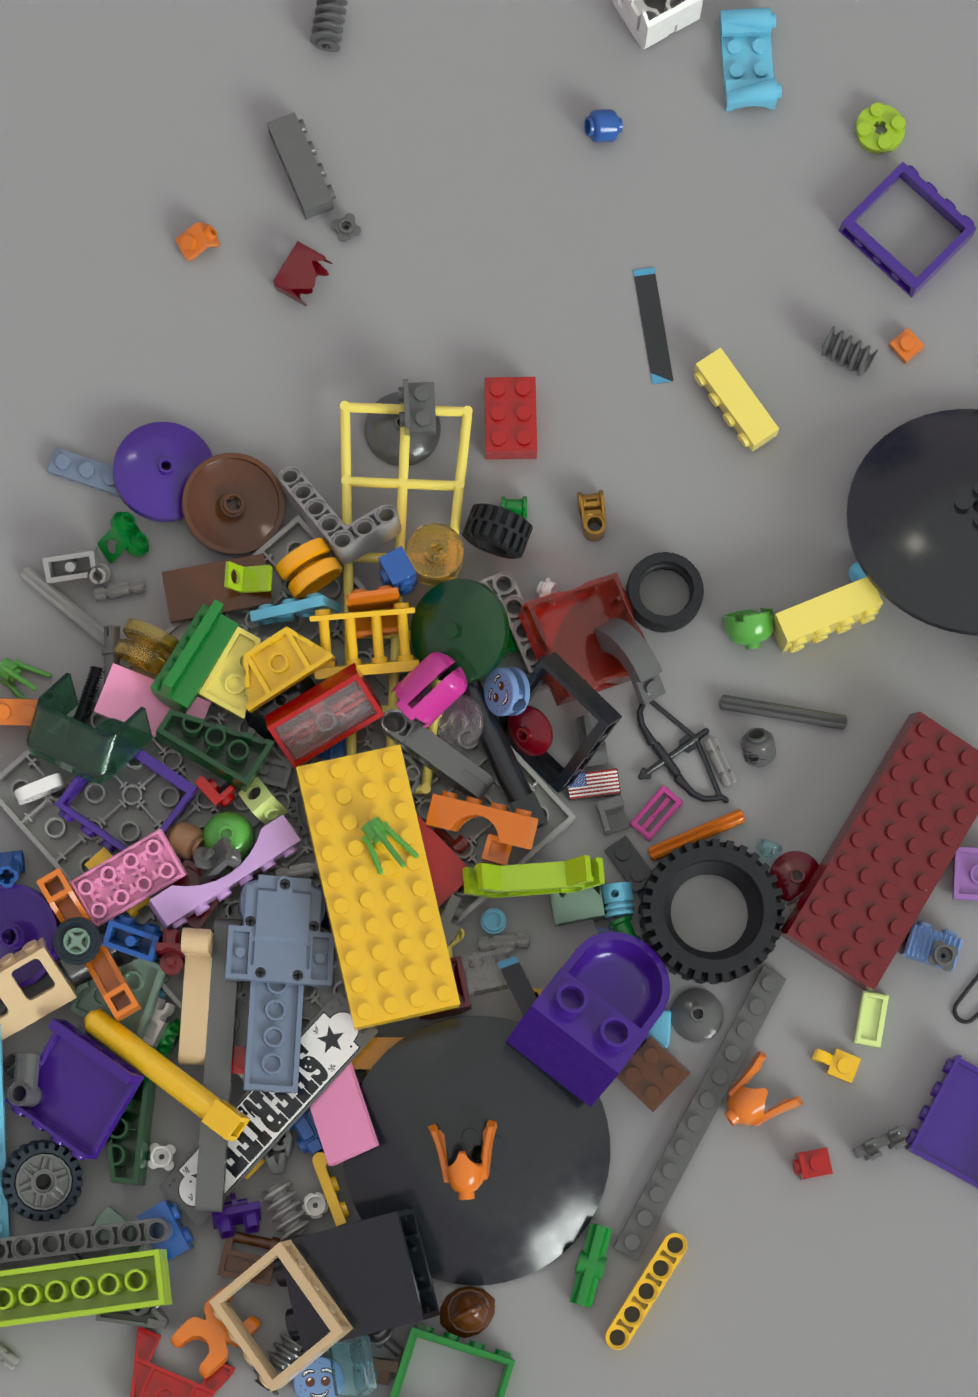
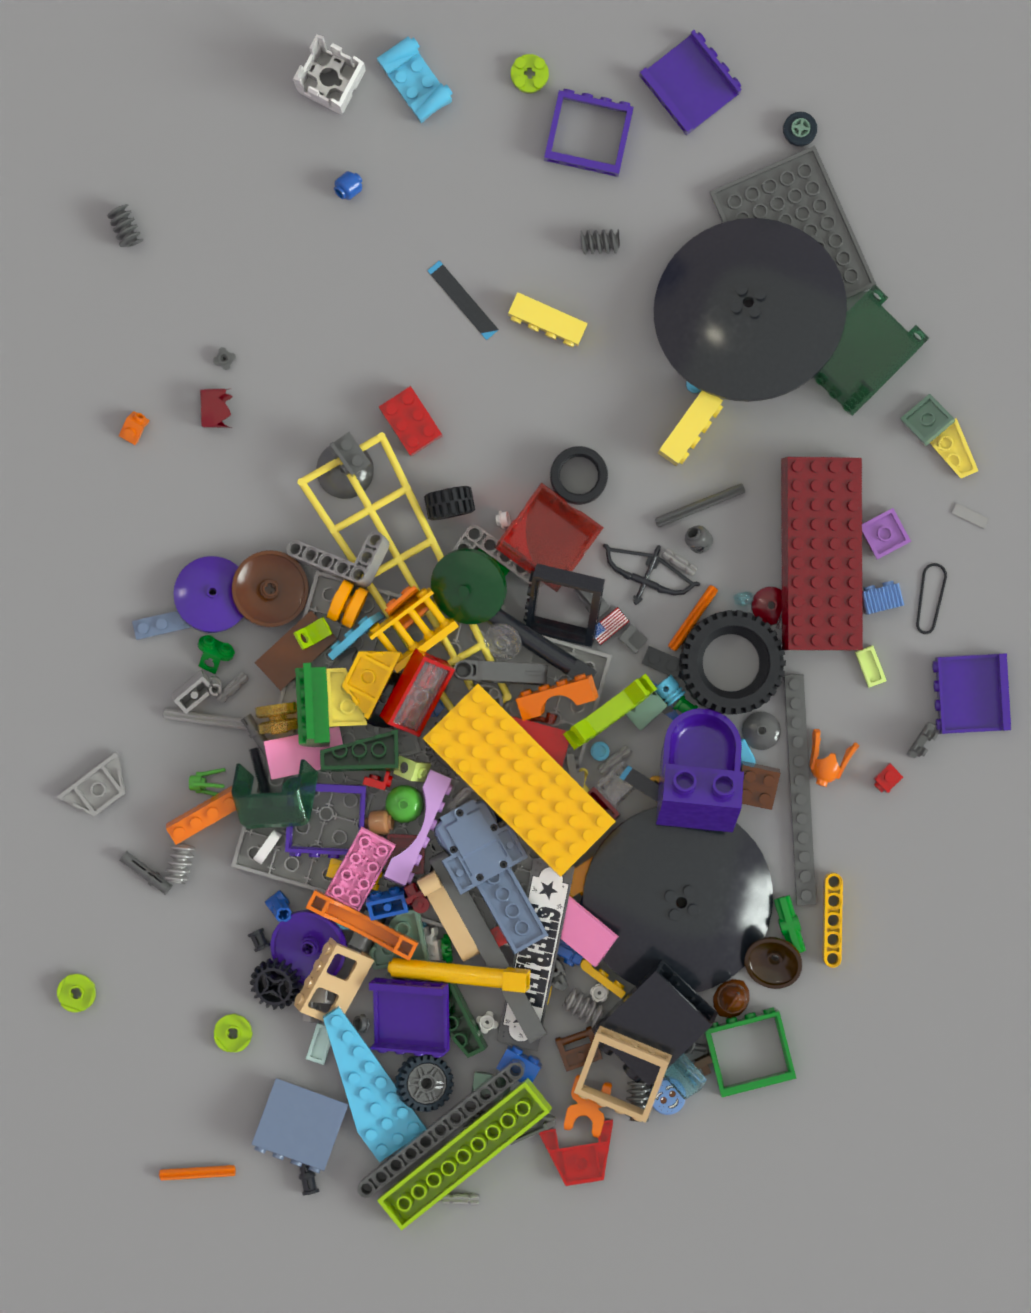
camera: 30 degrees left, 10 degrees up
(25, 1078) = (374, 1028): dark grey piece -> none
(69, 939) = (356, 933): black wheel -> none
(214, 860) = (408, 825): dark grey hips -> none
(236, 1213) = (555, 1027): dark purple hips -> none
(300, 165) = (167, 335): dark grey brick -> none
(376, 832) = (499, 749): bright green plant -> none
(398, 571) = (406, 573): blue brick -> none
(431, 706) = (462, 642): dark pink cylinder -> none
(440, 540) = (415, 535): clear yellow wheel -> none
(464, 1174) = (682, 923): orange piece -> none
(496, 852) = (574, 710): orange plate -> none
(507, 691) = (522, 606): medium blue head -> none
(517, 506) = (449, 478): green bush -> none
(530, 731) = (550, 620): dark red dish -> none
(533, 1305) = (771, 970): none -> dark brown dish
(592, 510) = (501, 450): pearl gold piece -> none
(636, 656) = (583, 529): dark grey arch -> none
(642, 829) = (656, 635): dark pink tile -> none
(749, 627) = (645, 464): bright green cylinder -> none
(840, 1064) = (868, 706): yellow plate -> none
(906, 345) = (634, 212): orange plate -> none
(949, 951) = (897, 601): dark grey plate -> none

